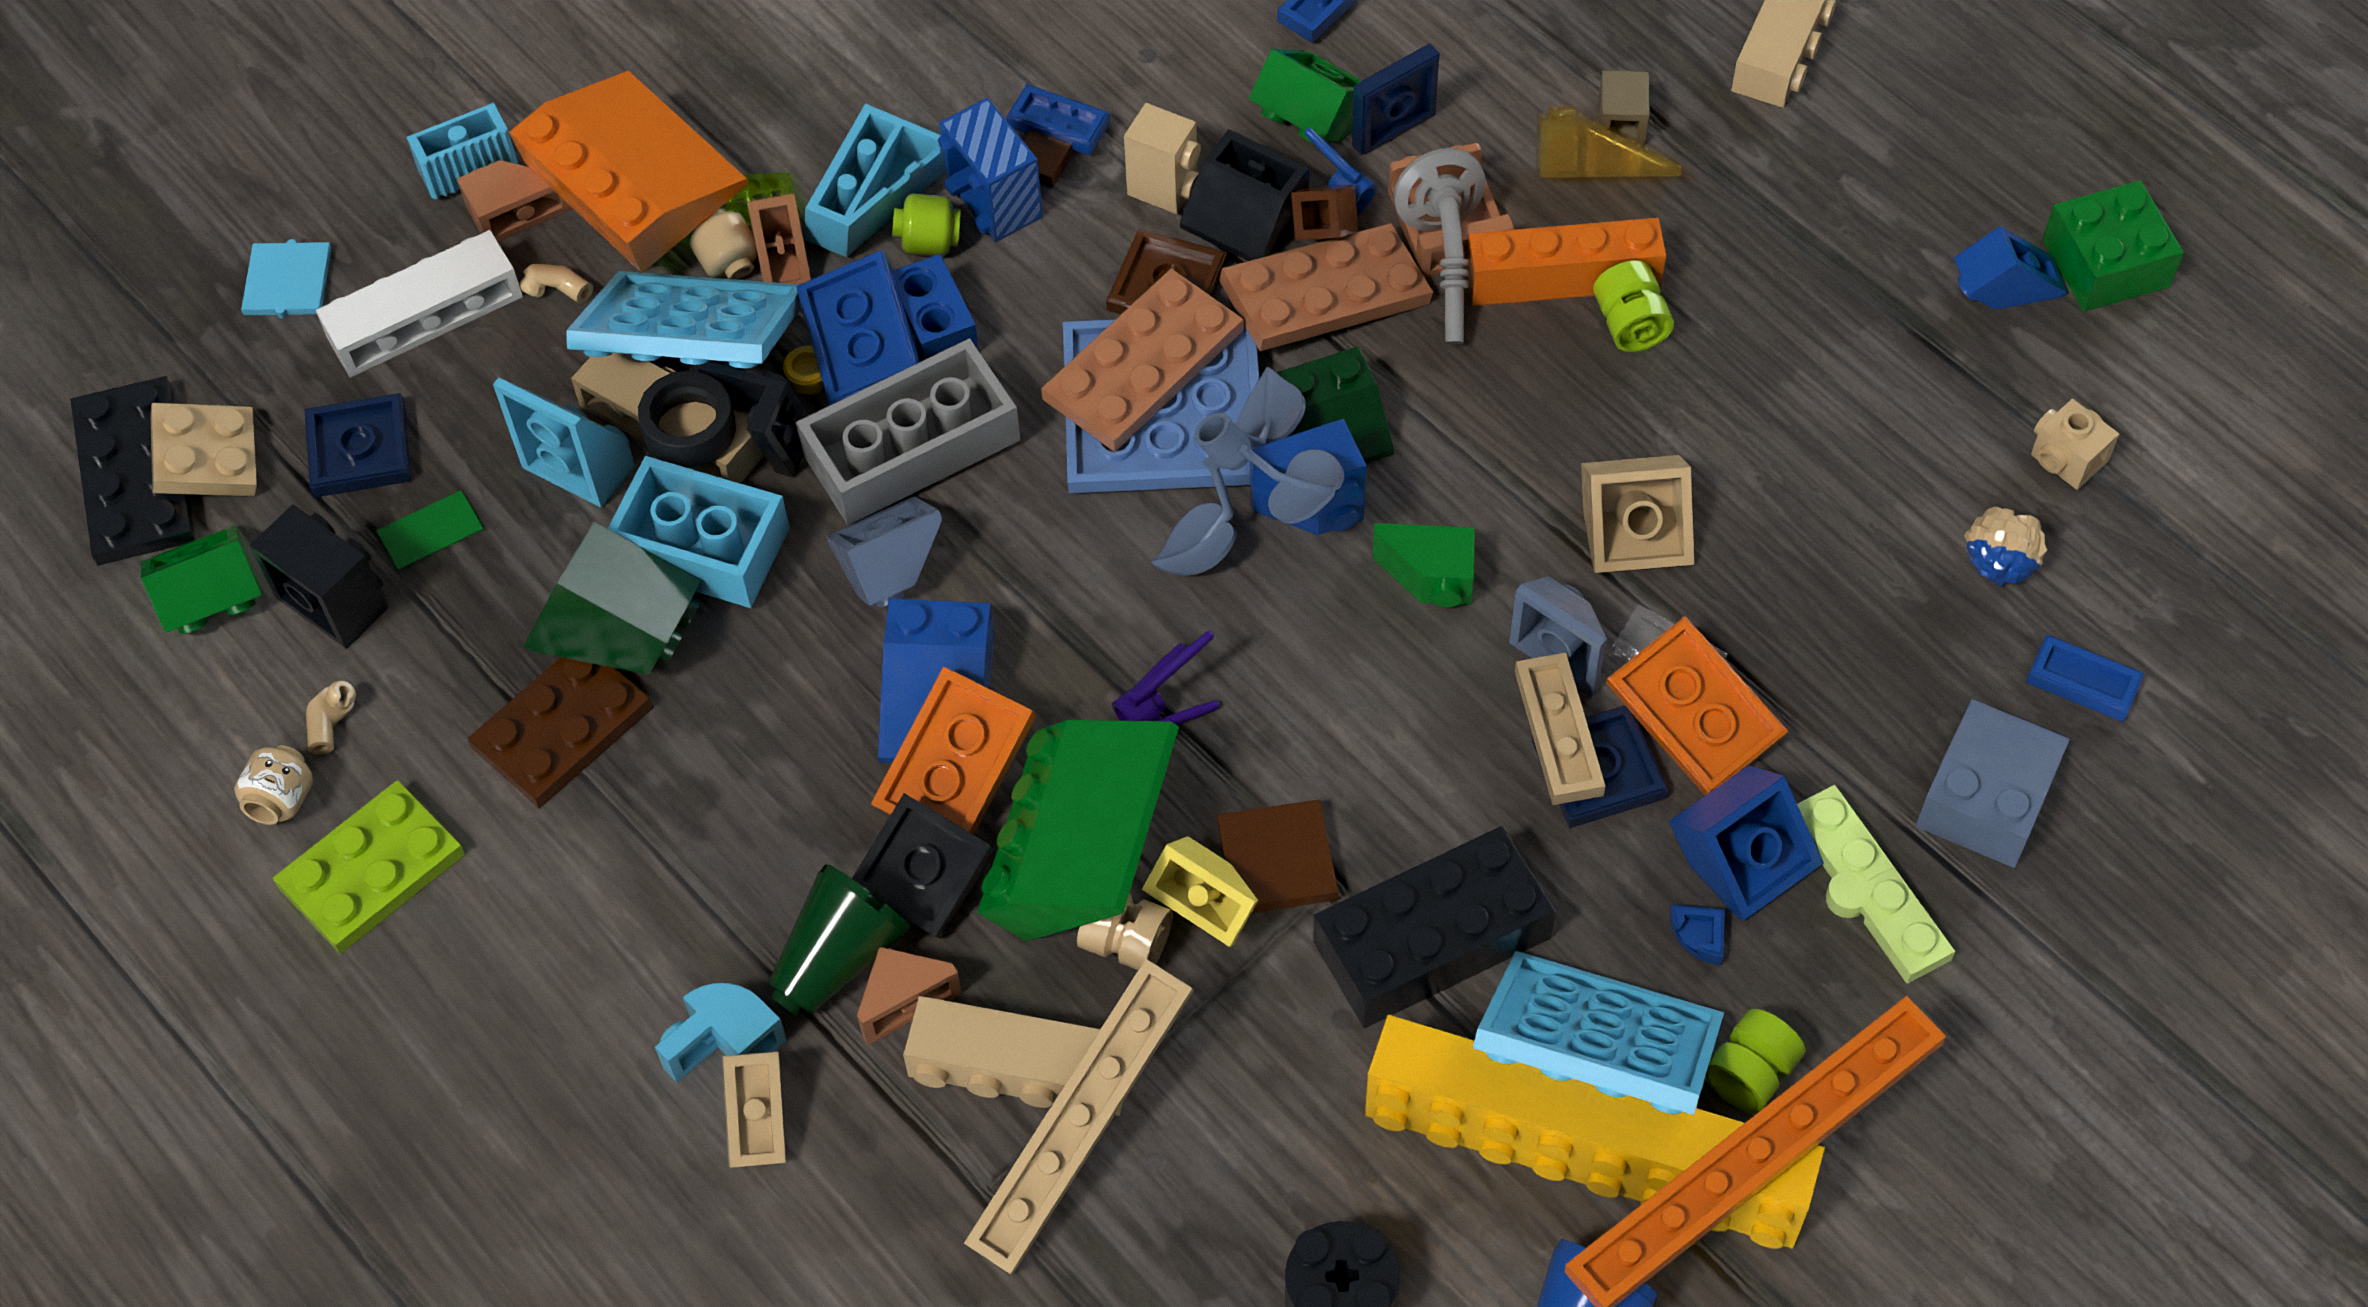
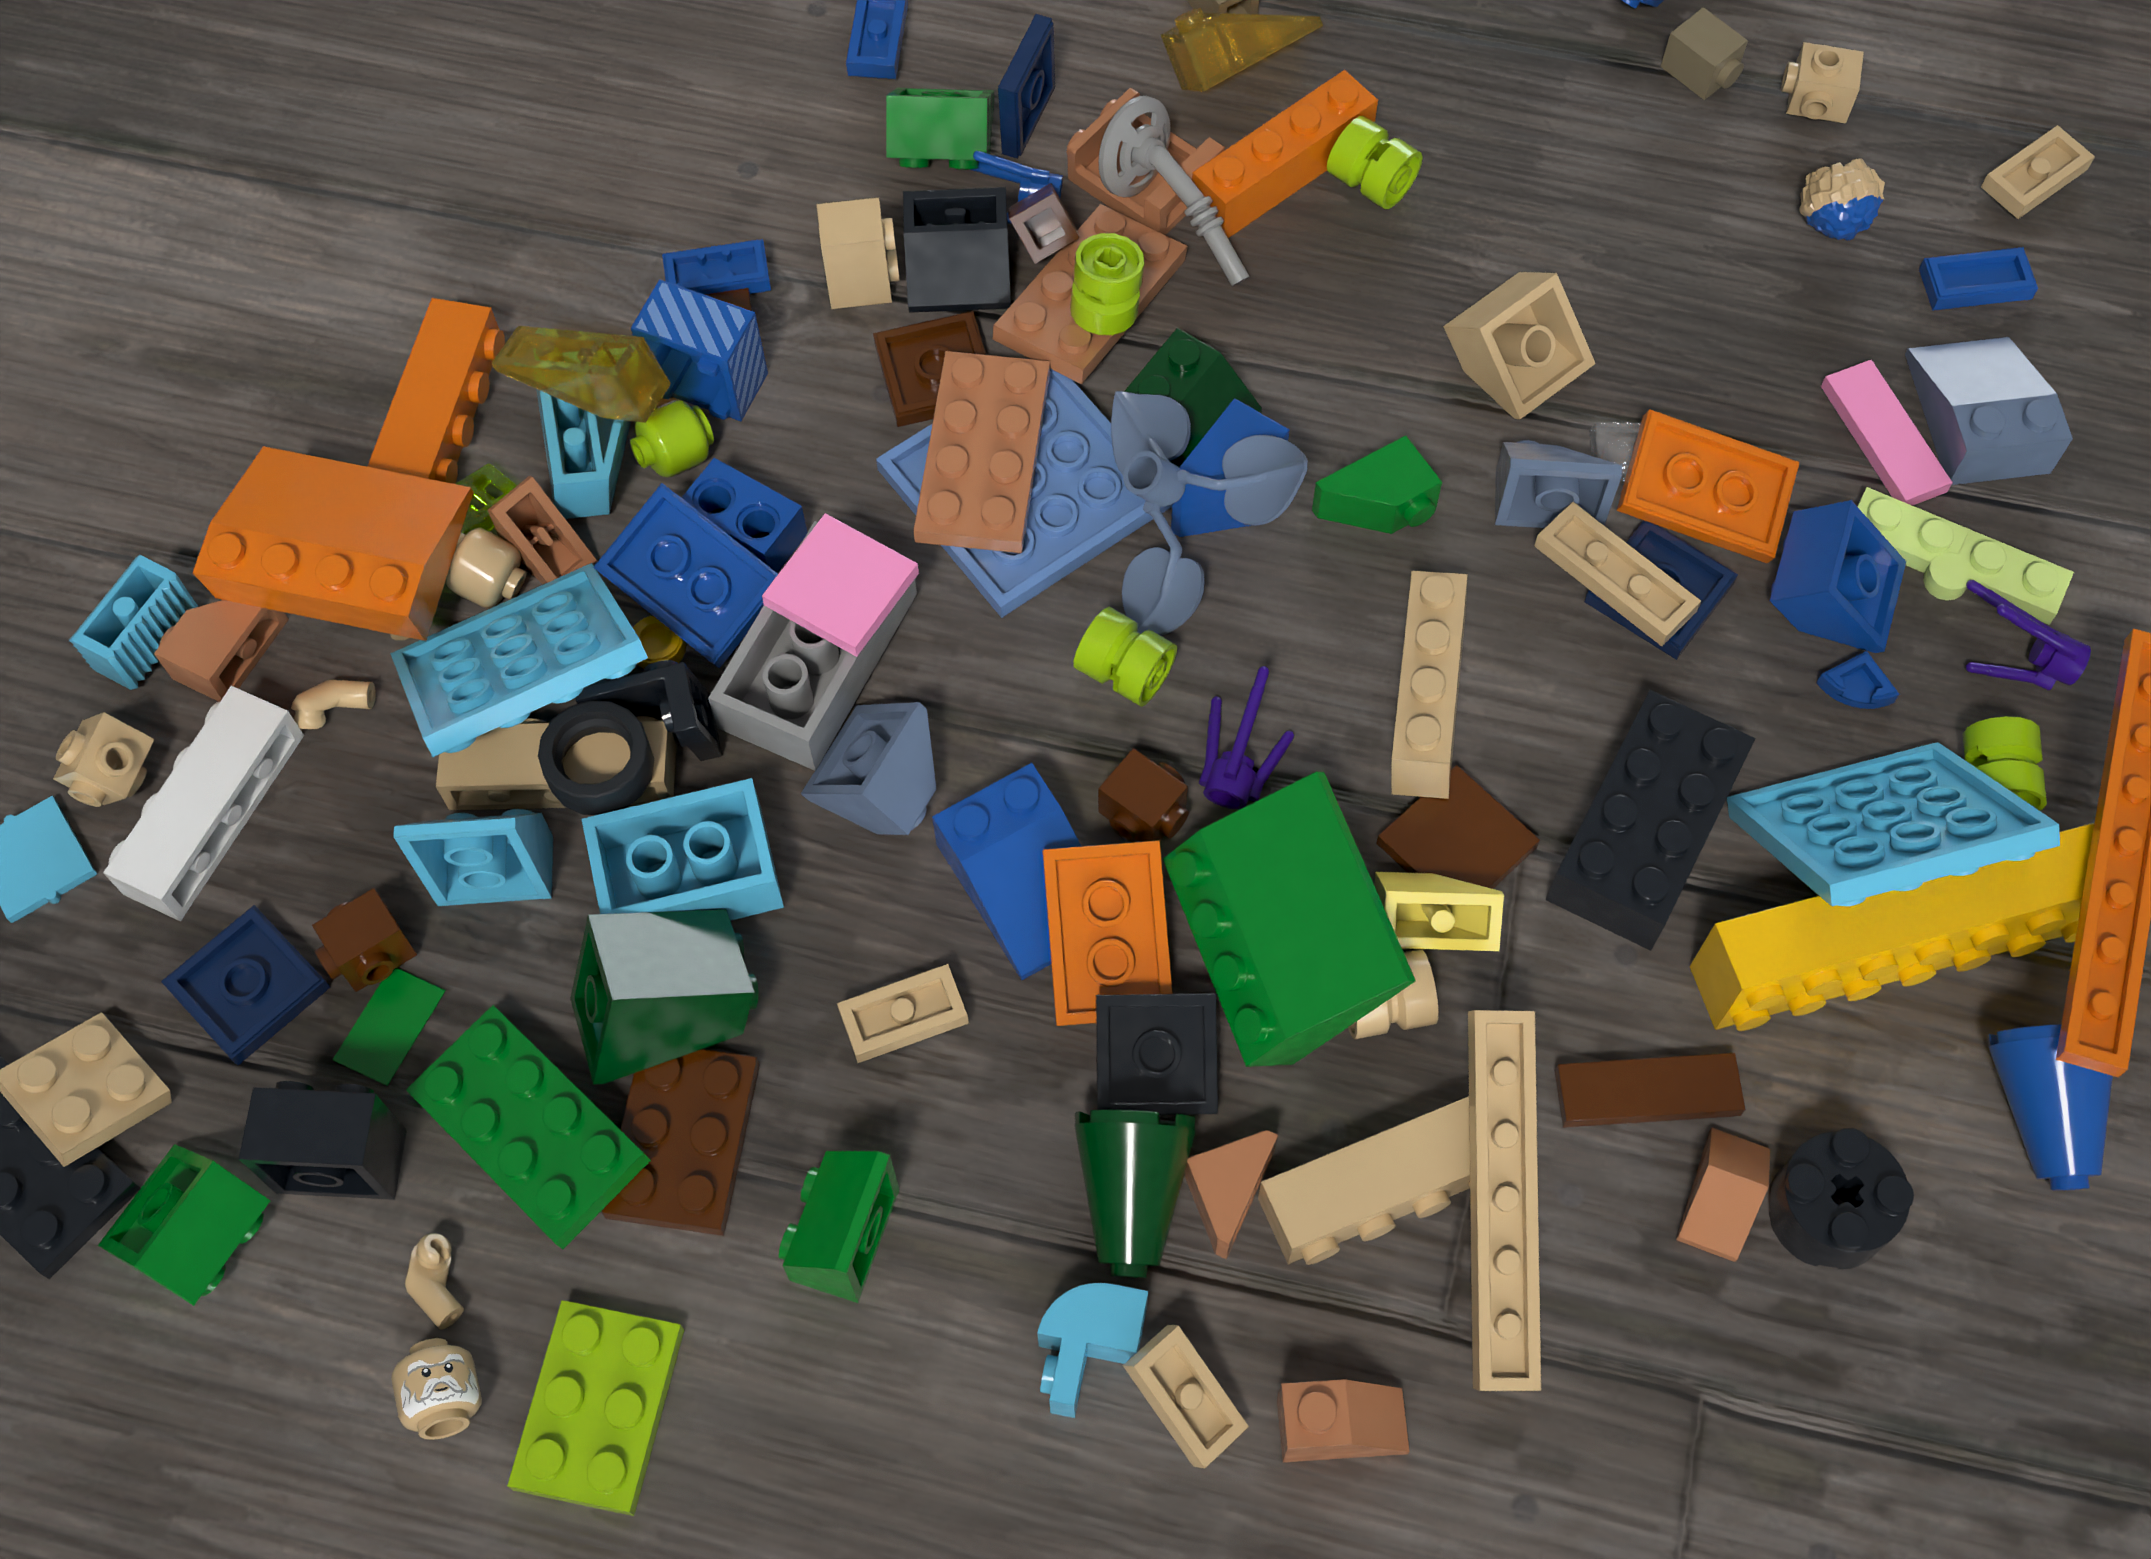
camera: 35 degrees left, 5 degrees up
(388, 231) = (102, 760): none -> tan brick
(450, 458) = (362, 941): none -> reddish brown brick
(462, 650) = (528, 1126): none -> green plate
(616, 846) = (841, 1222): none -> green slope
(772, 730) = (903, 1013): none -> tan plate
(787, 102) = (439, 392): none -> orange brick
(850, 1198) = (1340, 1420): none -> nougat slope
(887, 137) = (590, 370): none -> clear yellow slope
(948, 393) = (840, 584): none -> bright pink tile
(1061, 682) = (1144, 799): none -> reddish brown brick
(1130, 570) = (1130, 659): none -> lime wheel
(1263, 1229) = (1725, 1195): none -> nougat slope
(1272, 1123) = (1649, 1090): none -> reddish brown tile
(1320, 280) = (1106, 283): none -> lime wheel
(1340, 724) = (1429, 685): none -> tan brick
(1879, 994) = (2053, 652): none -> dark purple plant
(1892, 755) = (1886, 434): none -> bright pink tile
(1992, 366) = (1704, 54): none -> dark tan brick
(2211, 619) = (2037, 172): none -> tan plate

